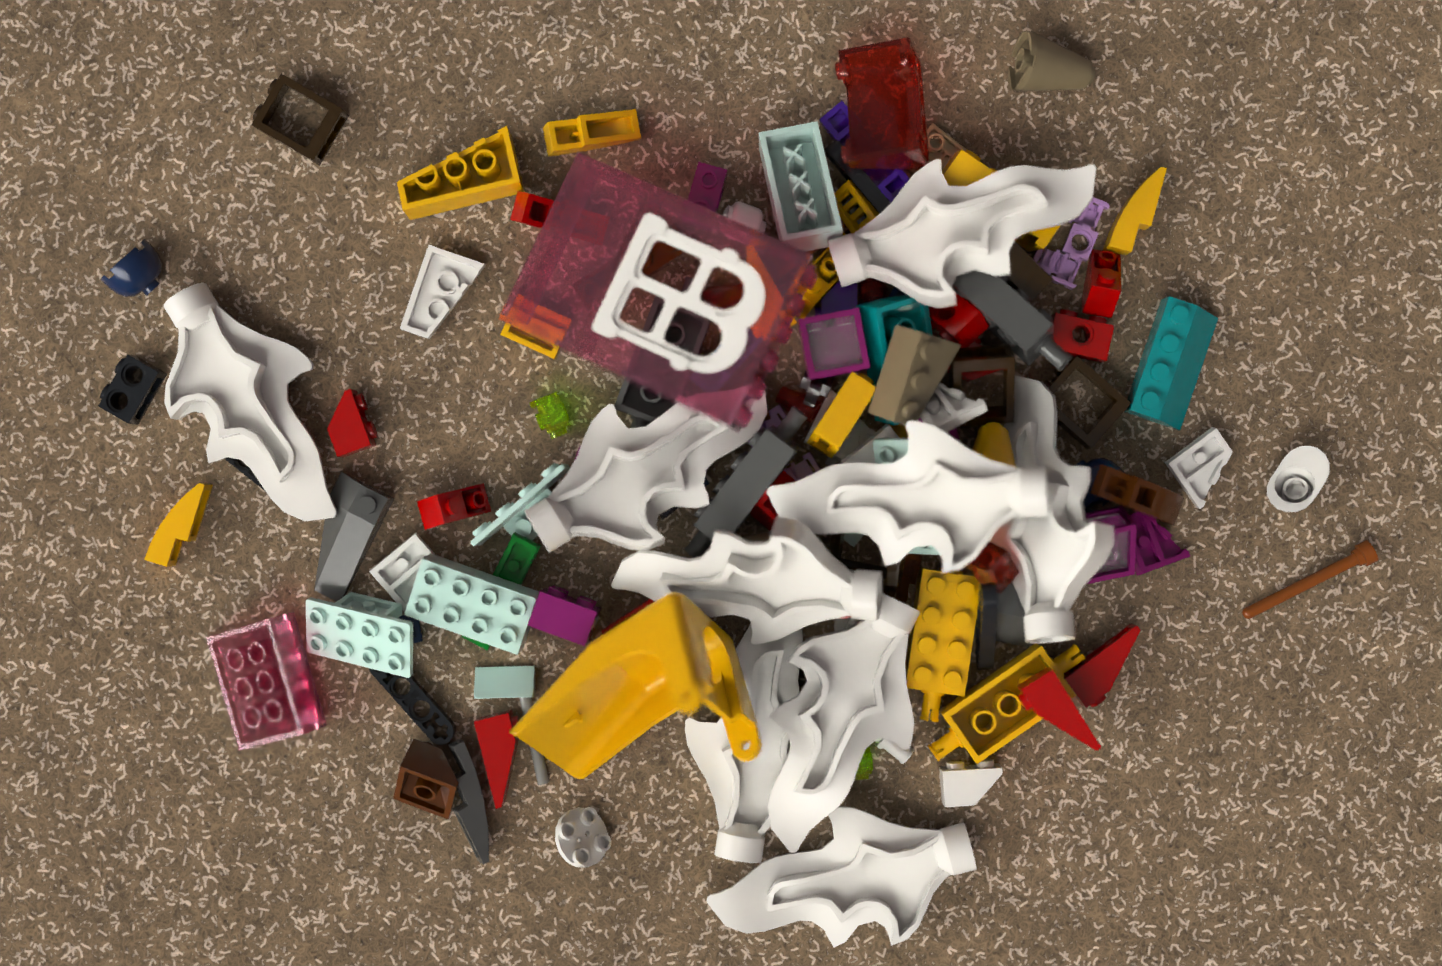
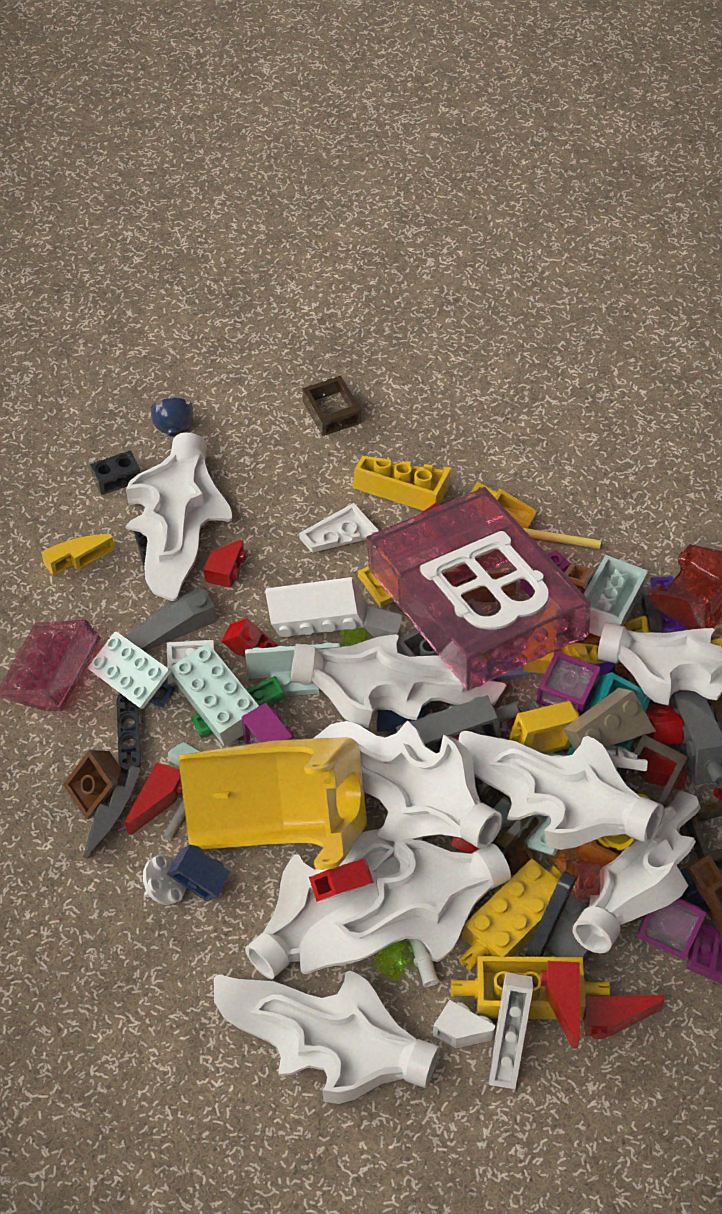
camera: 35 degrees right, 35 degrees down
(502, 429) = (316, 607): none -> white slope
(583, 396) = (382, 622): none -> light grey slope
(610, 810) = (198, 872): none -> dark blue brick
(679, 129) = (562, 538): none -> light yellow bar
(754, 191) = (580, 575): none -> dark orange slope
(777, 739) = (341, 880): none -> red slope
(1021, 763) = (511, 1030): none -> white slope

